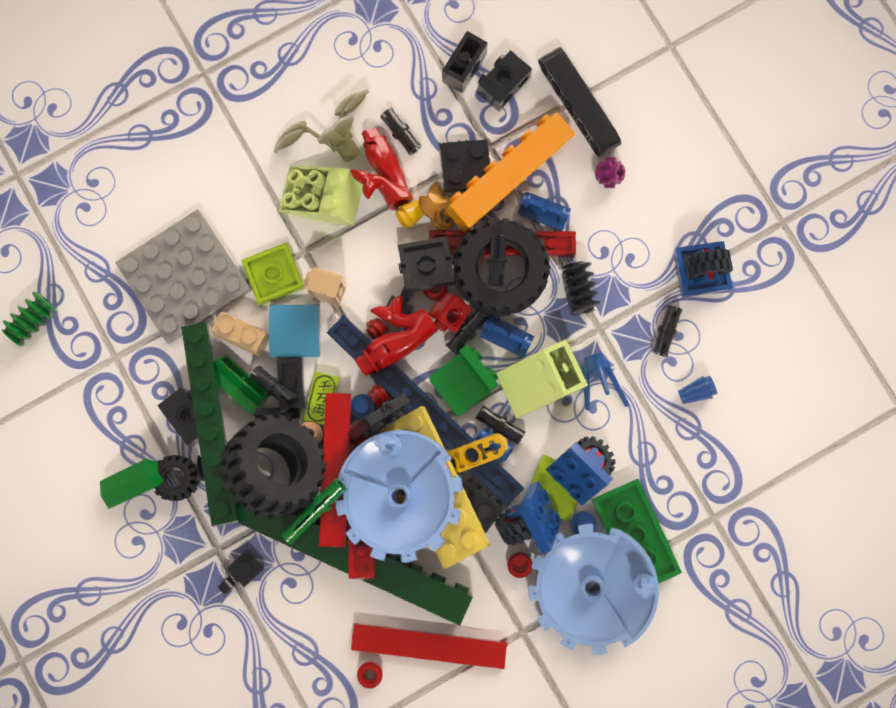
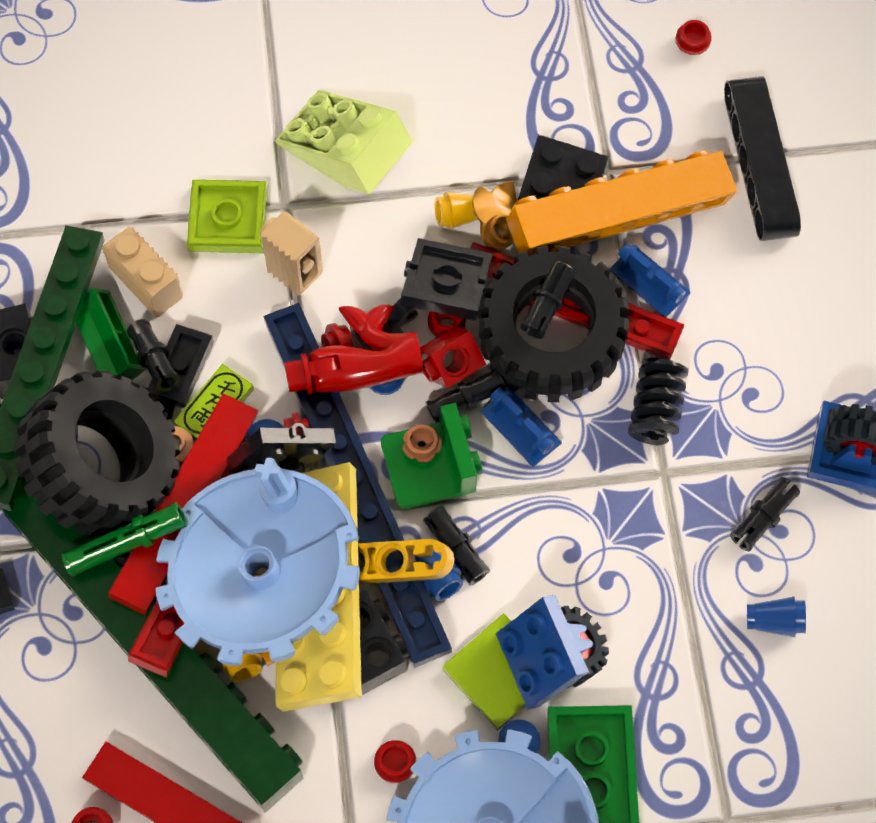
camera: 20 degrees right, 15 degrees down
(183, 276) = (103, 169): light grey plate -> none
(294, 330) = (220, 298): dark azure slope -> none
(337, 134) = (404, 84): olive plant -> none
(390, 177) = (448, 145): red piece -> none
(400, 131) = (491, 102): black pin -> none
(455, 367) = (421, 433): none -> nougat plate
(464, 62) = (619, 45): black brick -> none
(499, 93) = (652, 106): black brick -> none
(506, 35) = (693, 37): none -> red plate
(530, 520) = (441, 690): blue plate -> none
(541, 379) = (547, 502): yellowish green slope -> none
(597, 367) = (637, 522): blue plant -> none
(610, 172) = (767, 263): magenta gear -> none

